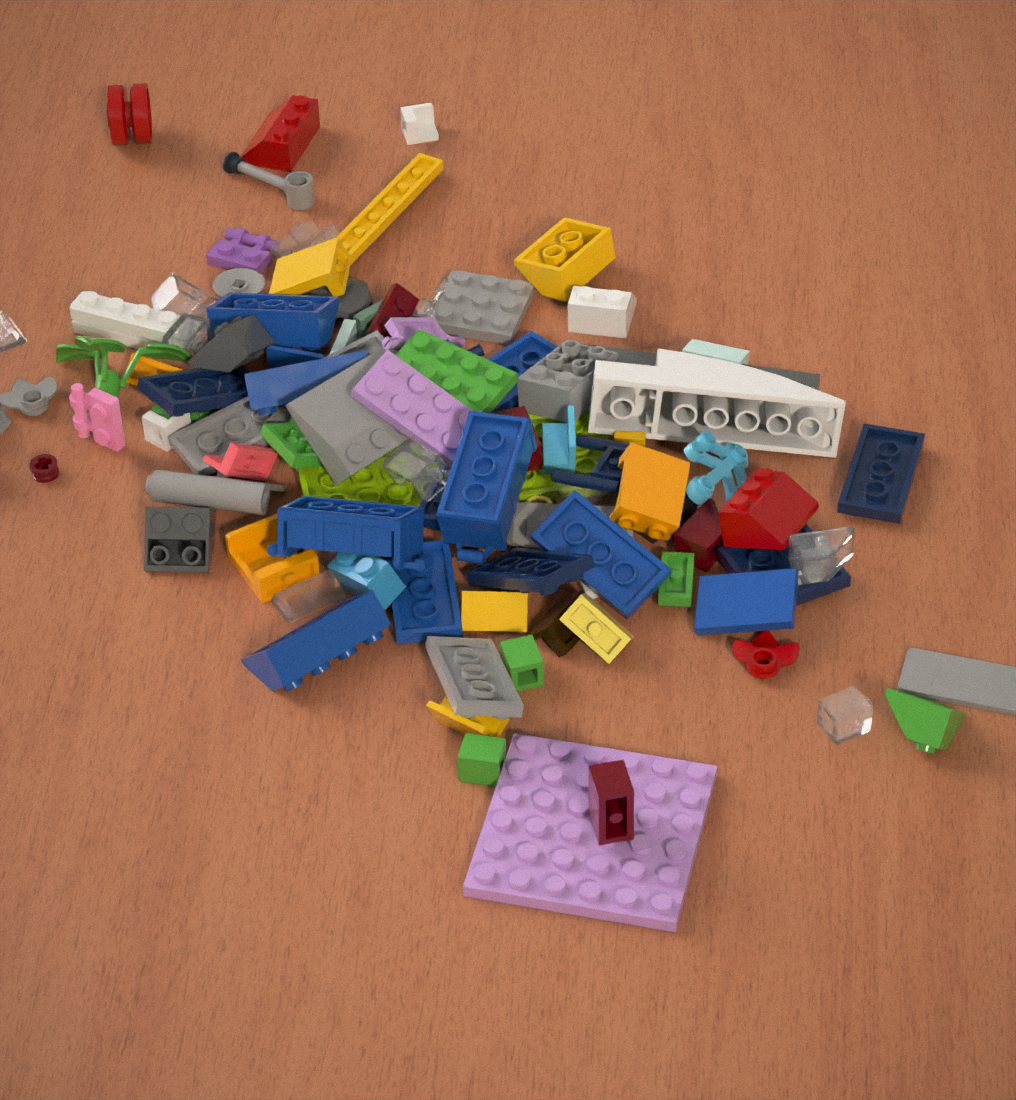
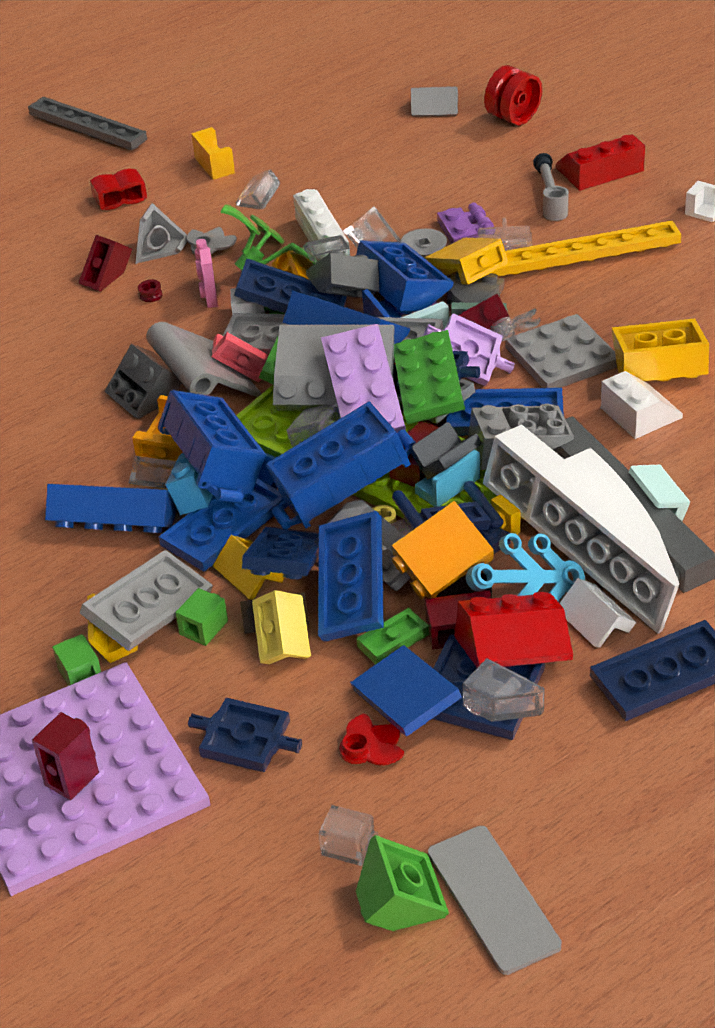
camera: 50 degrees right, 0 degrees up
(45, 160) = (434, 101): none -> light grey panel
(551, 423) = (441, 450): none -> panel
(677, 712) = (244, 734): none -> dark blue plate
(797, 466) = (594, 612): none -> white panel

